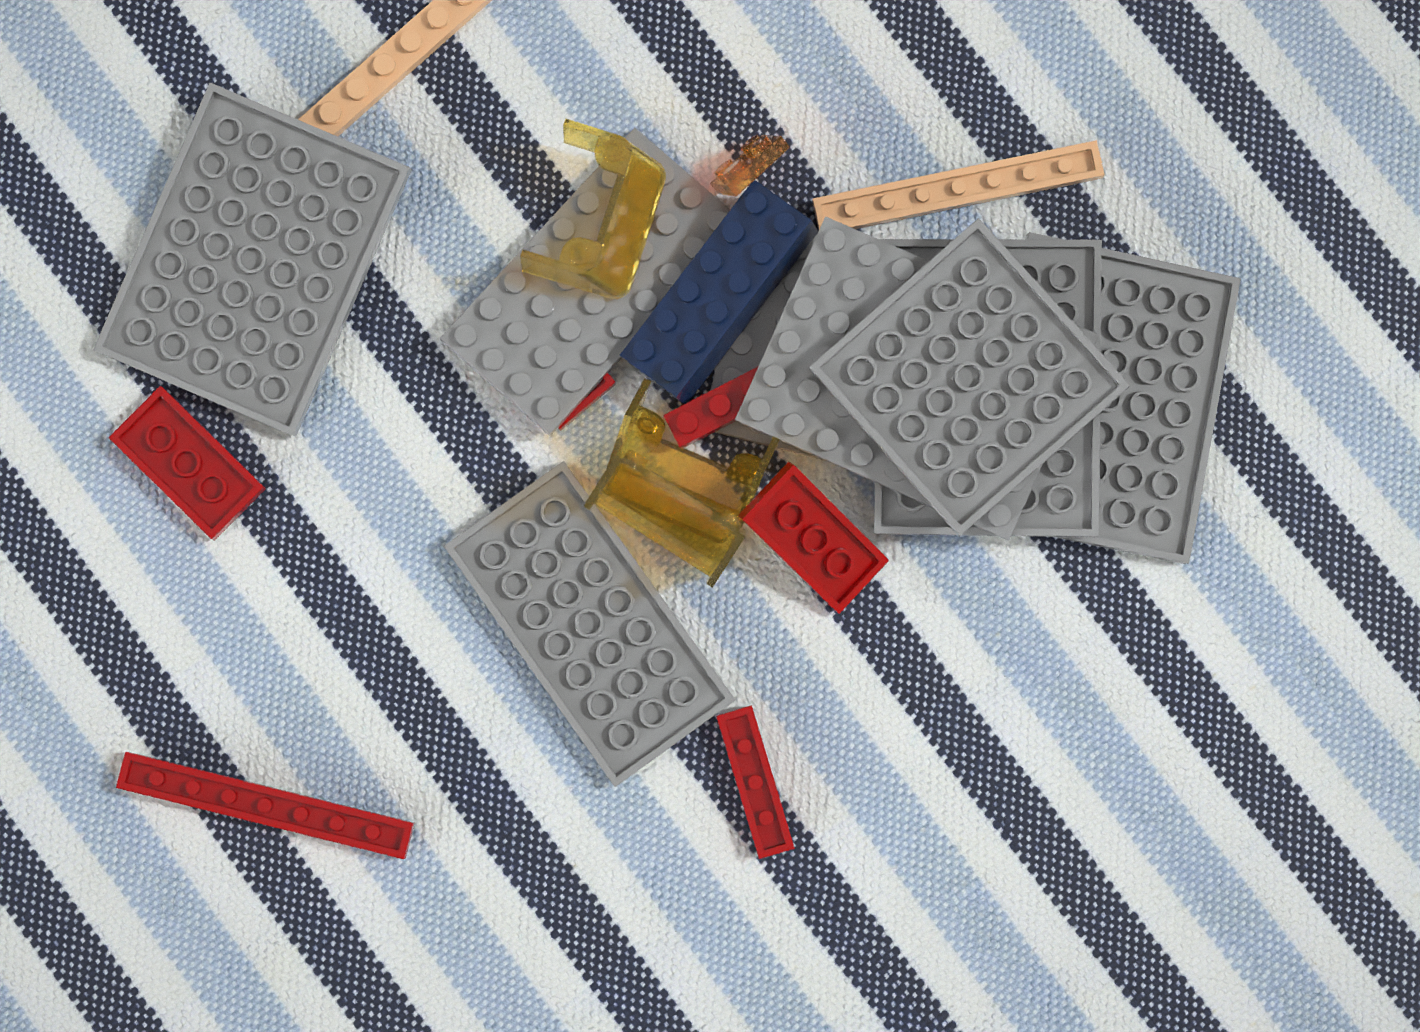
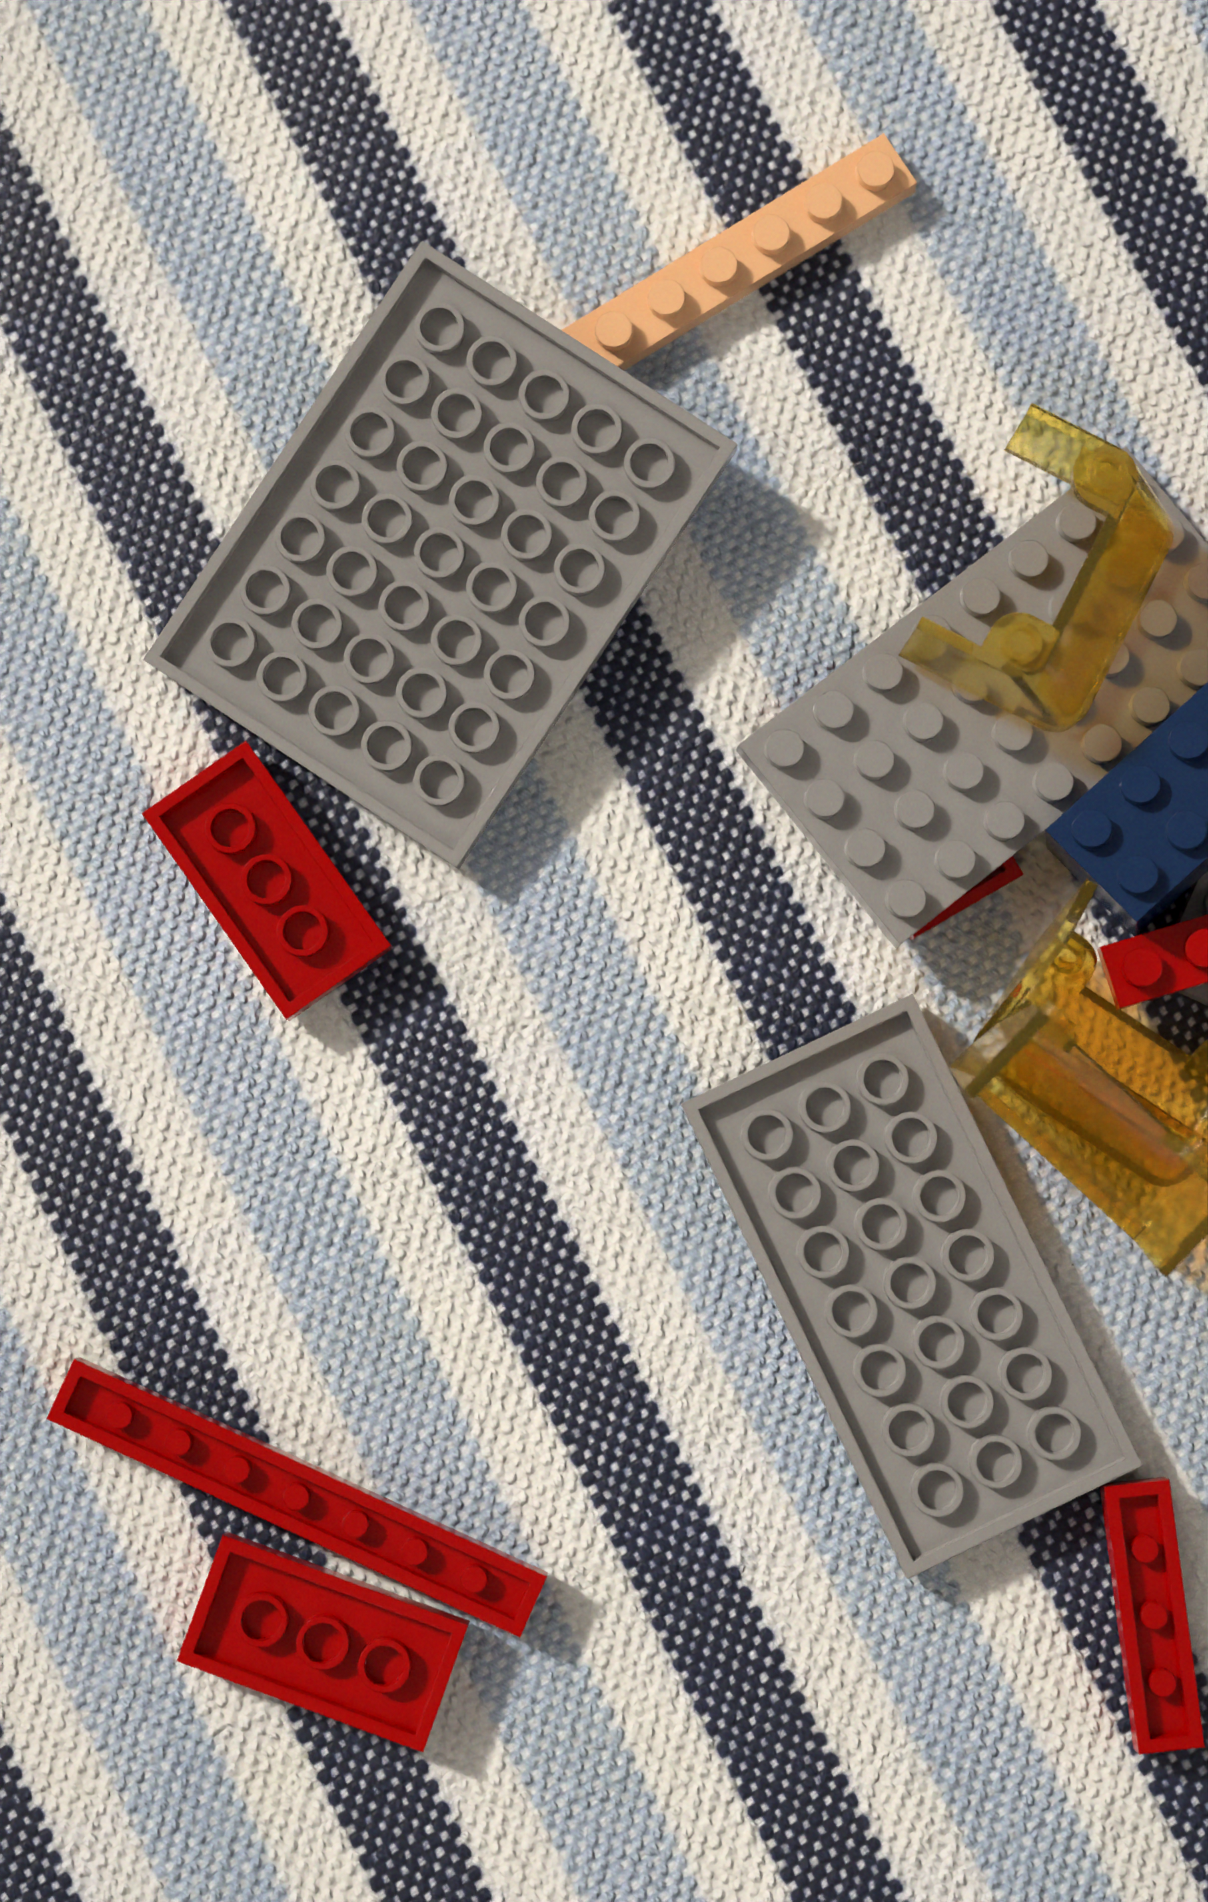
camera: 15 degrees right, 0 degrees up
(294, 883) = (323, 1641): none -> red plate

